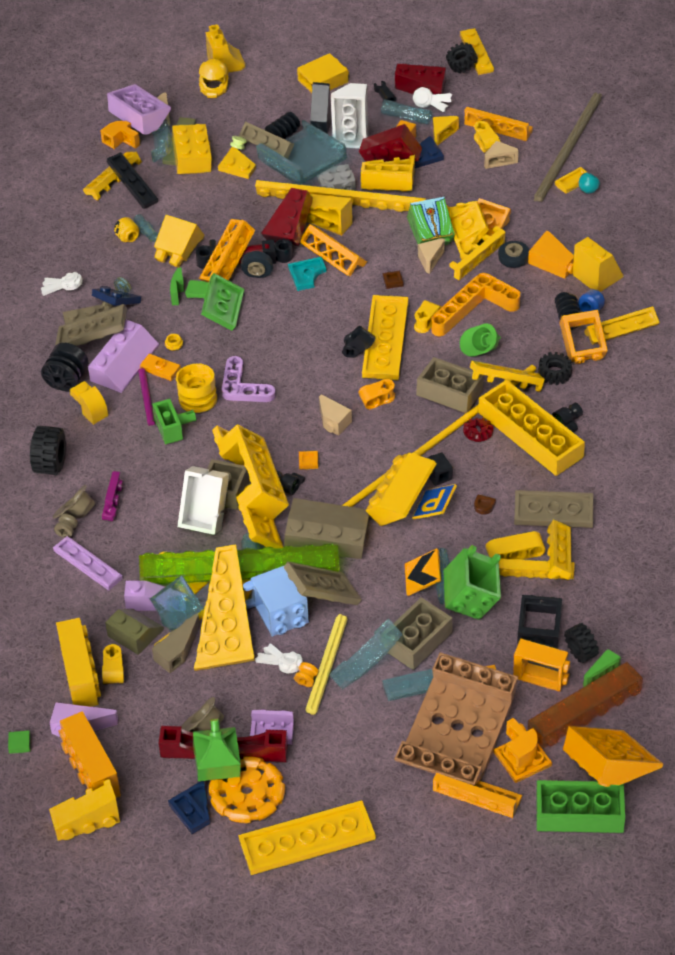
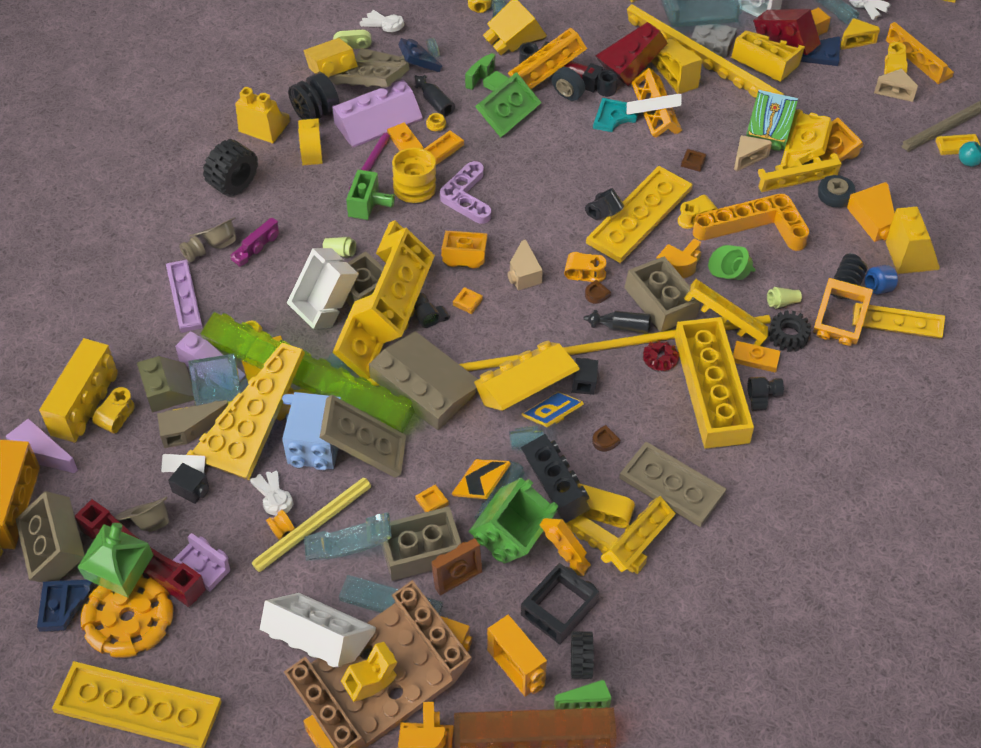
camera: 30 degrees right, 5 degrees up
(33, 401) = (260, 116): none -> yellow hips
(50, 309) = (355, 38): none -> yellowish green plate
(50, 330) = (331, 57): none -> yellow brick
(151, 767) = (49, 537): none -> dark tan brick
(155, 322) = (435, 96): none -> black wheel
(178, 468) = (342, 245): none -> yellowish green cone
(197, 354) = (445, 146): none -> light orange plate
(197, 674) = (172, 462): none -> white sticker
(215, 683) = (189, 483): none -> black brick
(277, 423) = (464, 248): none -> light orange slope
(334, 250) = (654, 103): none -> white sticker
(393, 722) = (316, 628): none -> white slope
(397, 605) = (432, 499): none -> light orange tile
(398, 408) = (596, 292): none -> reddish brown tile
(431, 530) = (523, 435): none -> clear light blue brick
(434, 418) = (621, 321): none -> black wheel
(445, 353) = (685, 260): none -> light orange brick
(456, 631) = (457, 566): none -> dark orange plate
(457, 536) = (555, 478): none -> black brick
(458, 724) = (371, 675): none -> yellow brick
(517, 578) = (566, 543): none -> light orange hinge
(531, 348) = (782, 297): none -> yellowish green cone
(547, 396) = (756, 356): none -> light orange plate

